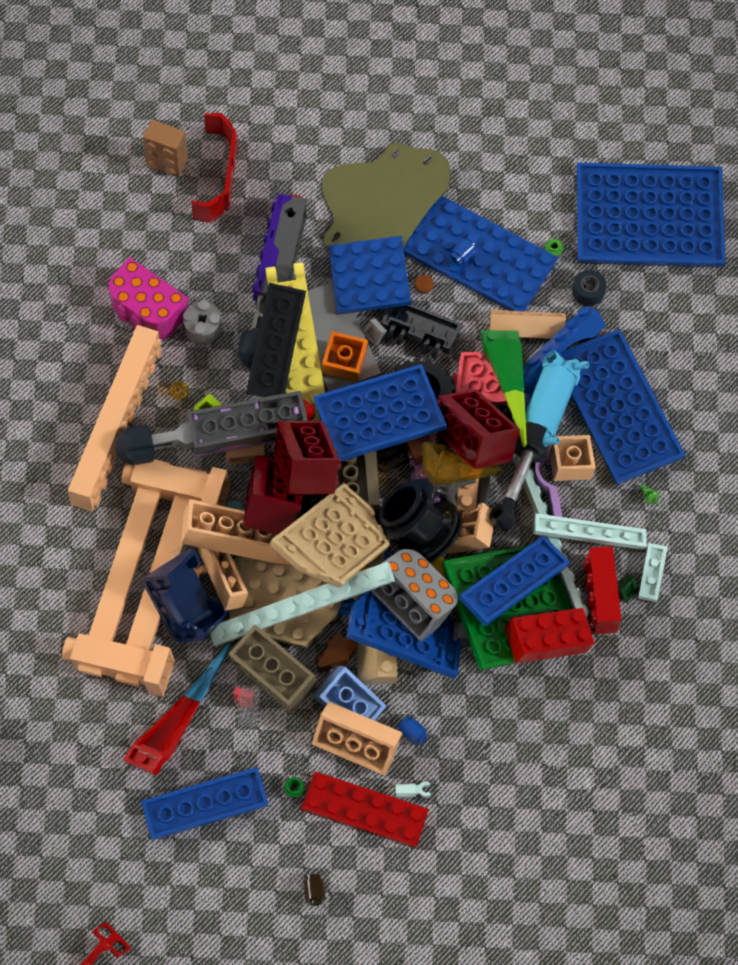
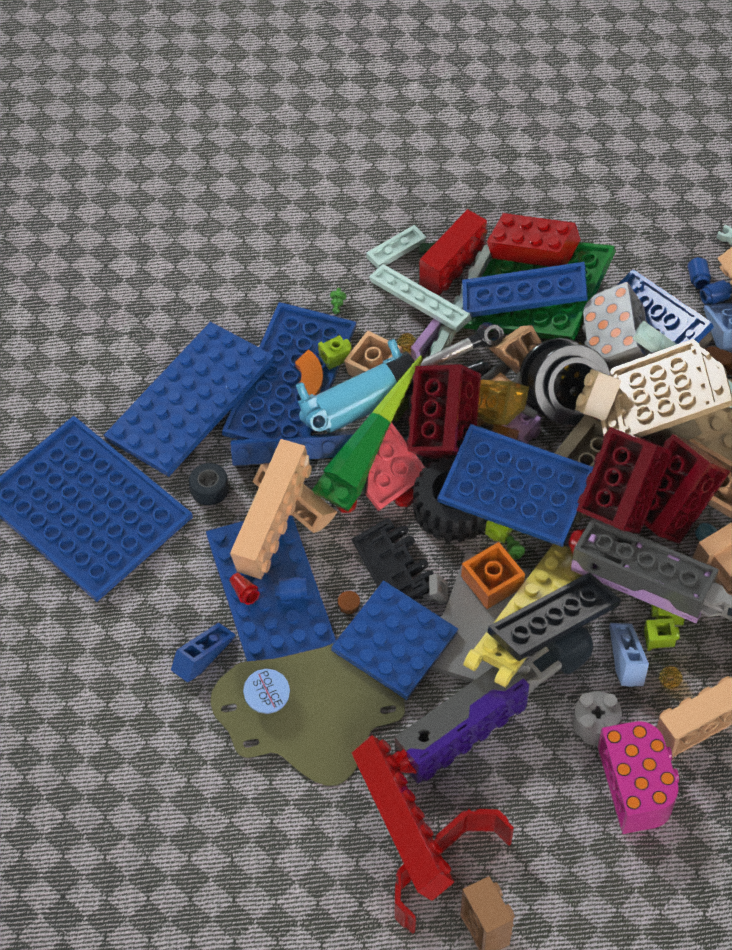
camera: 135 degrees left, 10 degrees down
(218, 380) = (628, 655): none -> light blue slope
(260, 158) = (403, 818): none -> red brick
(379, 509) = (597, 394): none -> tan brick
(388, 716) = (715, 292): none -> blue brick
(412, 178) = (266, 691): none -> light blue piece
(479, 183) = (201, 652): none -> blue slope
(491, 231) = (245, 590): none -> red cone
(521, 280) = (271, 509): none -> light nougat brick
(553, 242) = (199, 548): bright green plate -> none
(570, 494) = (406, 338): none -> clear yellow plate
(602, 412) = (310, 372): none -> orange tile
(606, 432) = (334, 351): none -> lime brick
(666, 337) = (189, 398): none -> blue plate

